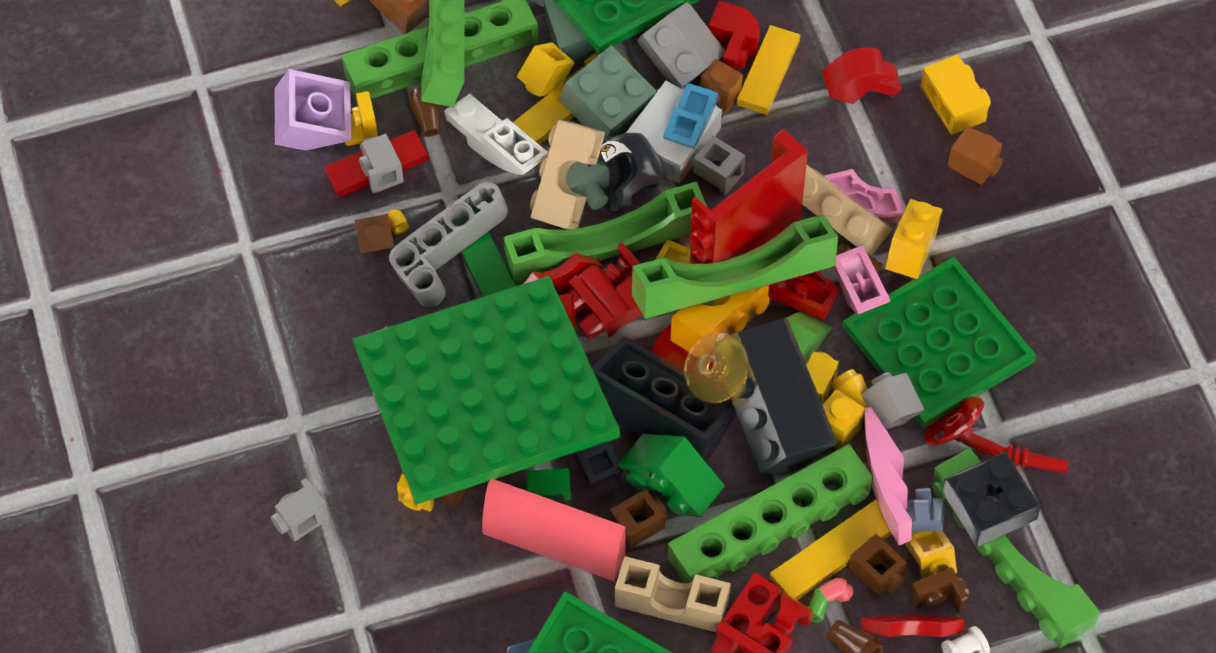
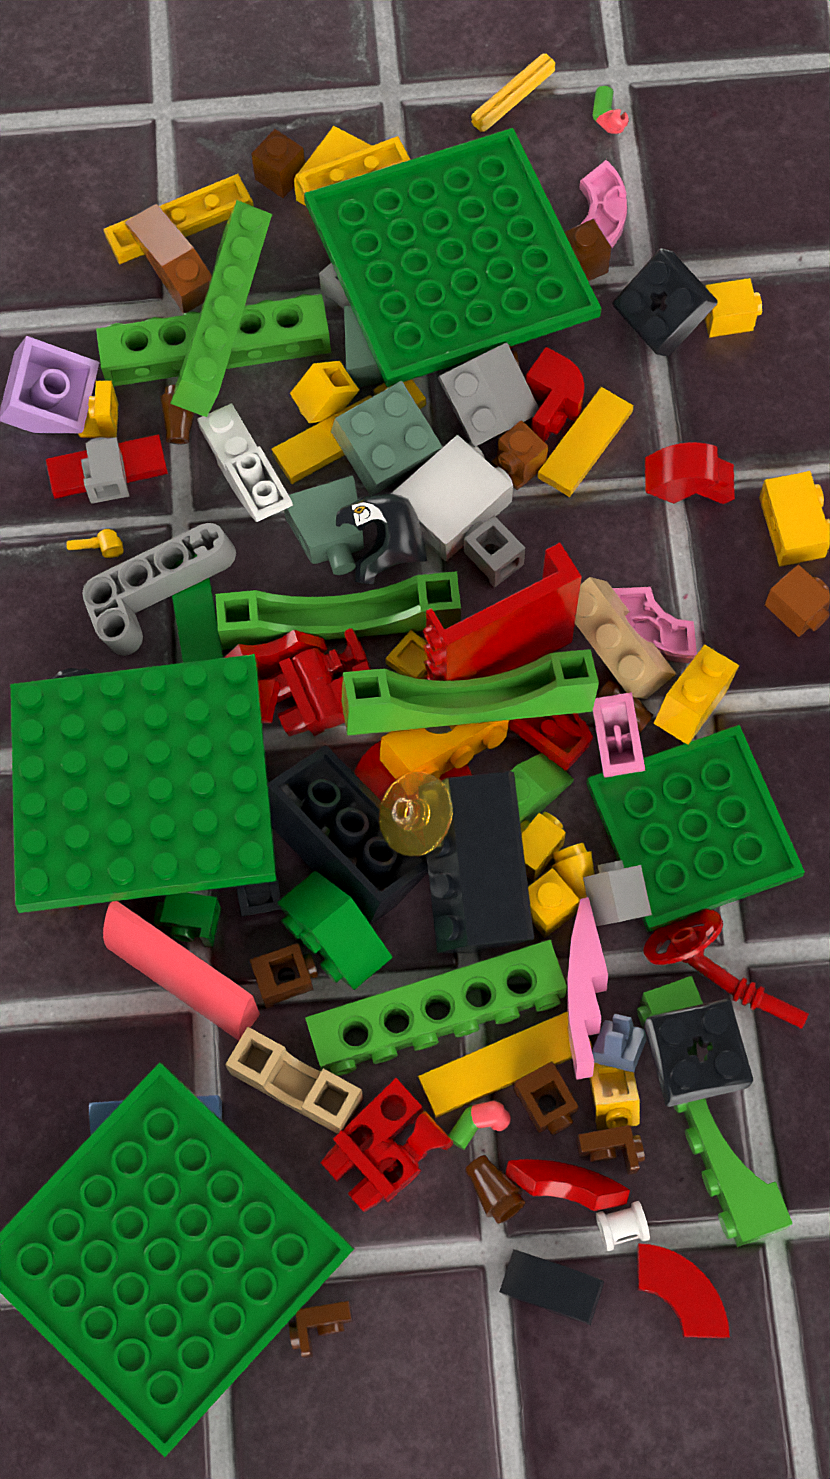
camera: 15 degrees right, 10 degrees up
(374, 233) = (75, 555): reddish brown brick -> none
(554, 199) = (288, 559): tan arch -> none
(691, 116) = (473, 488): dark azure slope -> none

